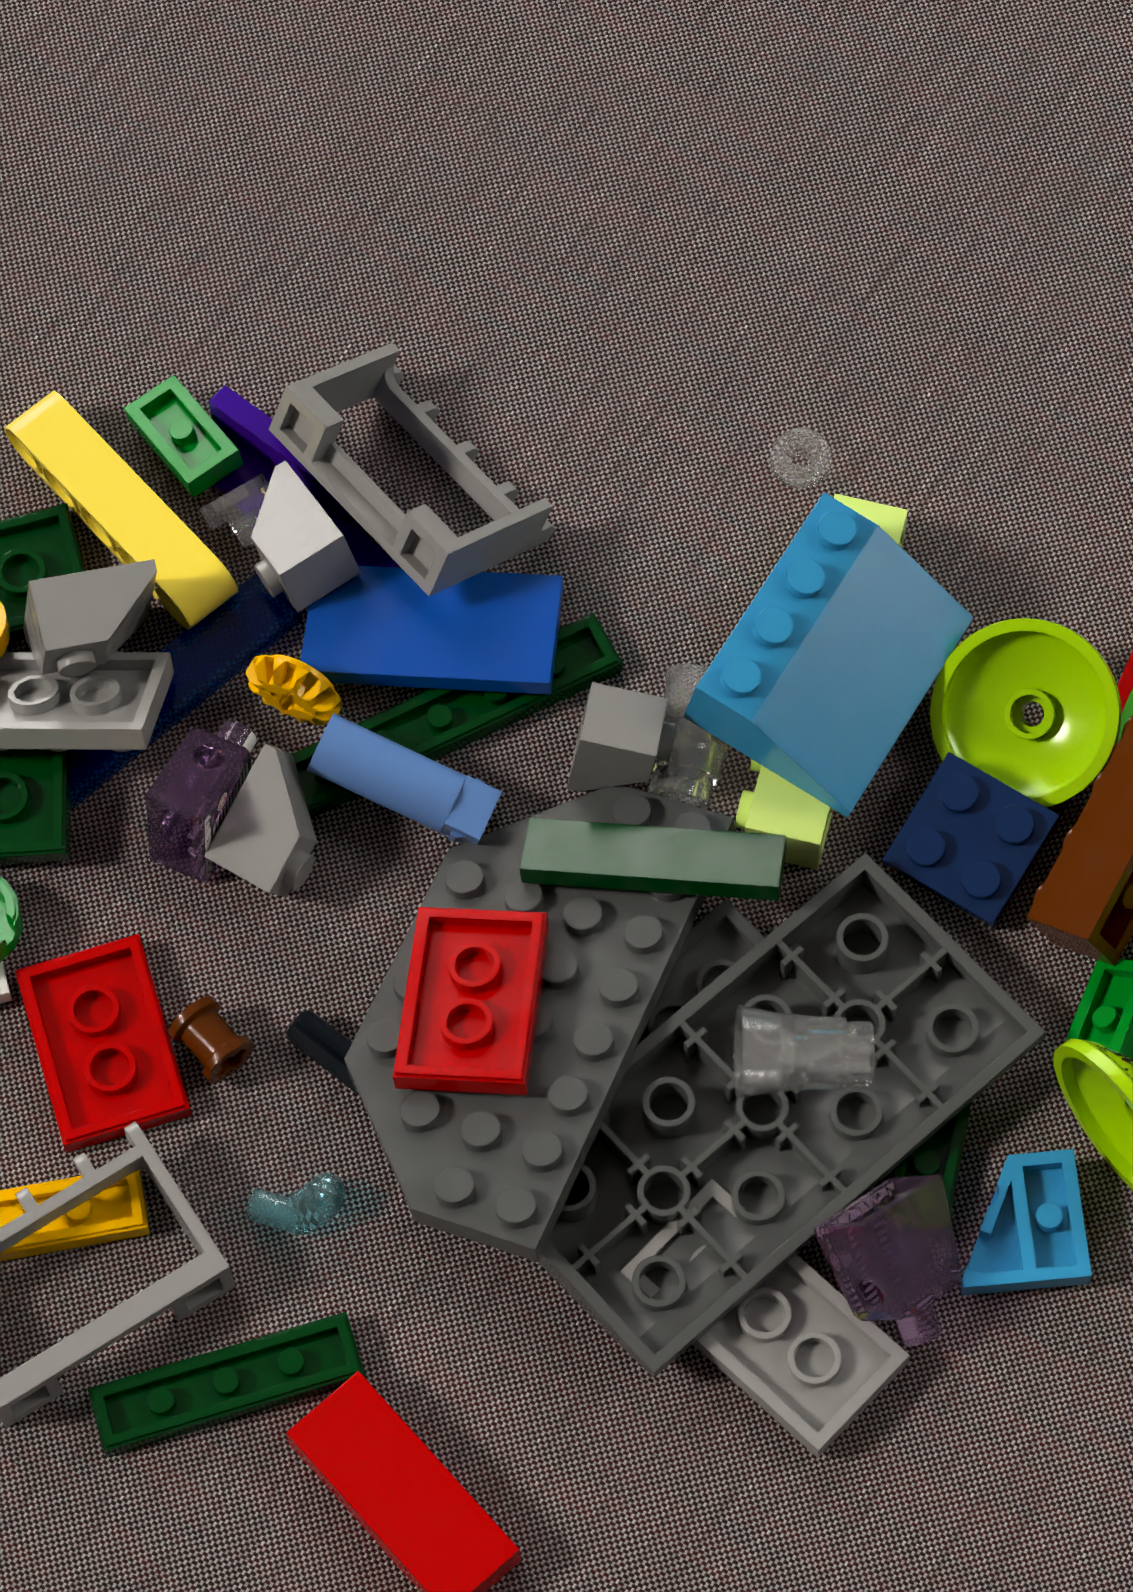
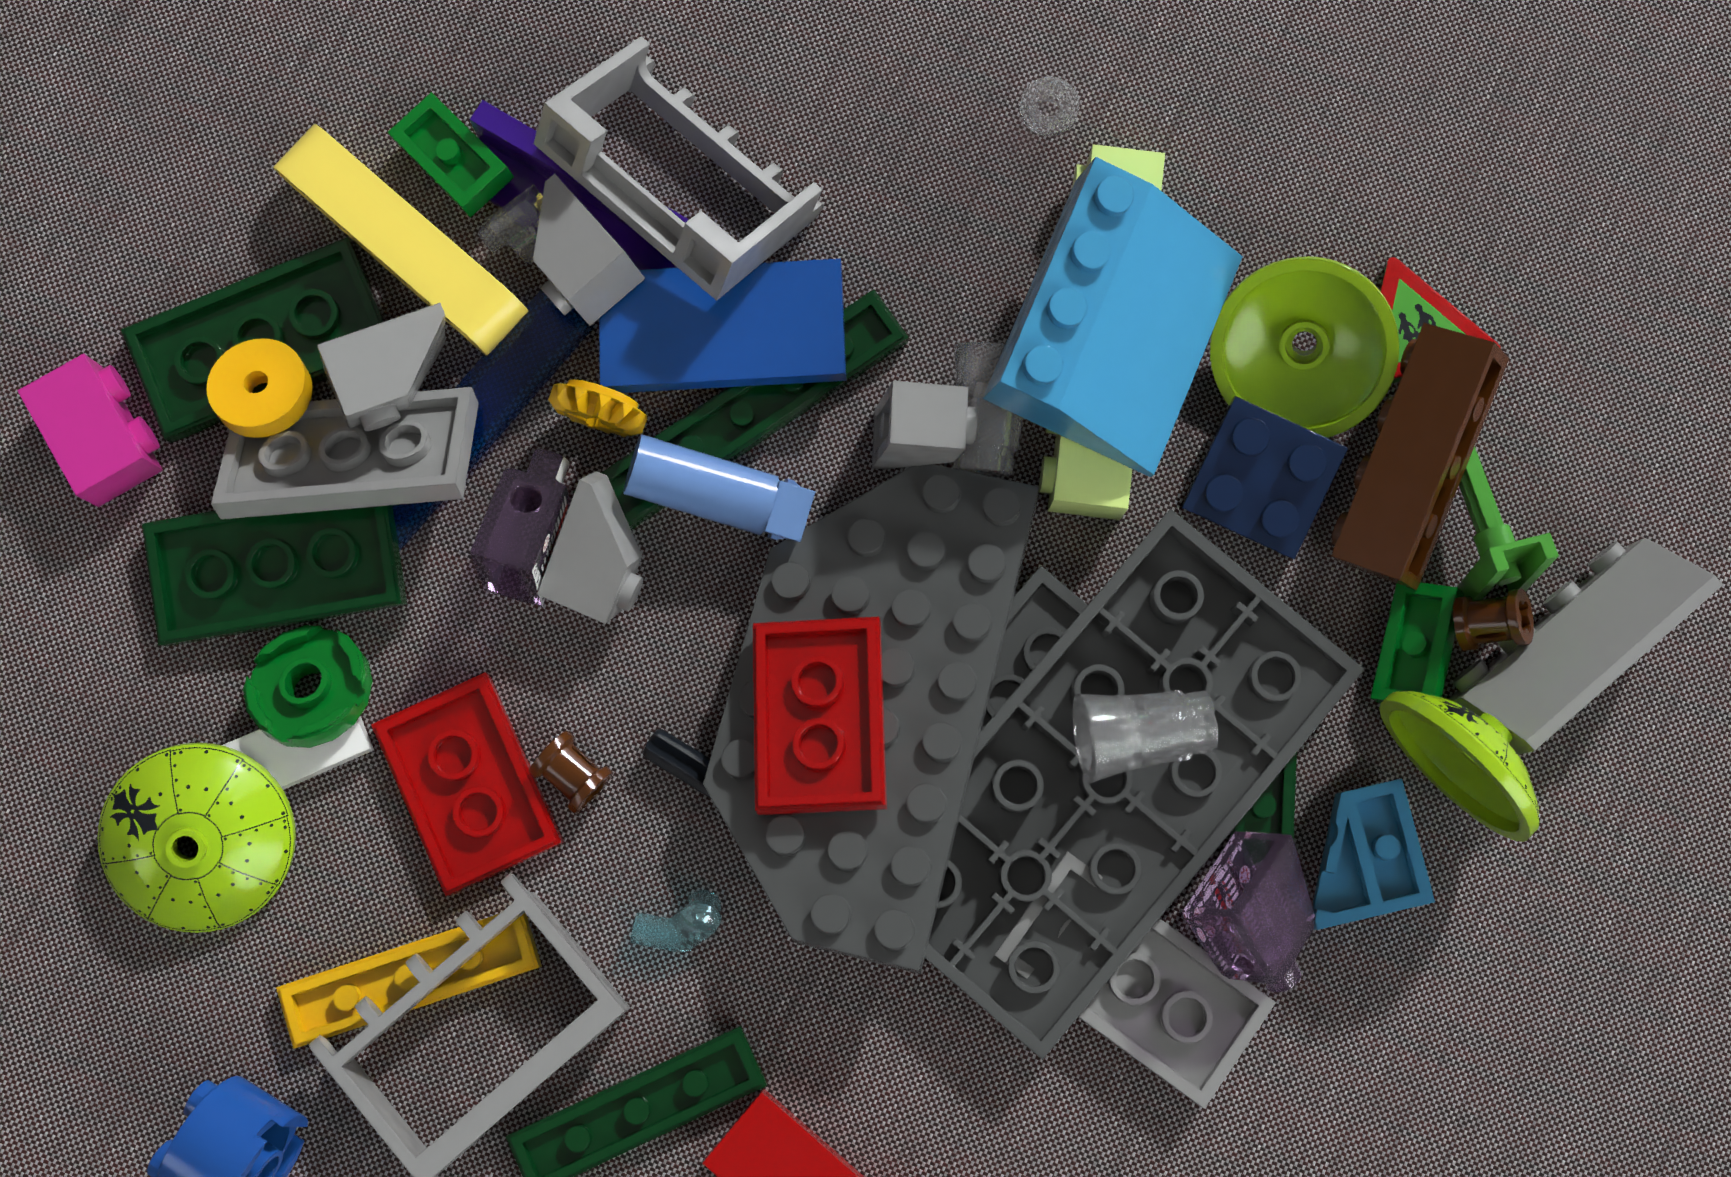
camera: 15 degrees left, 15 degrees up
(653, 859) = (972, 545): tile -> none

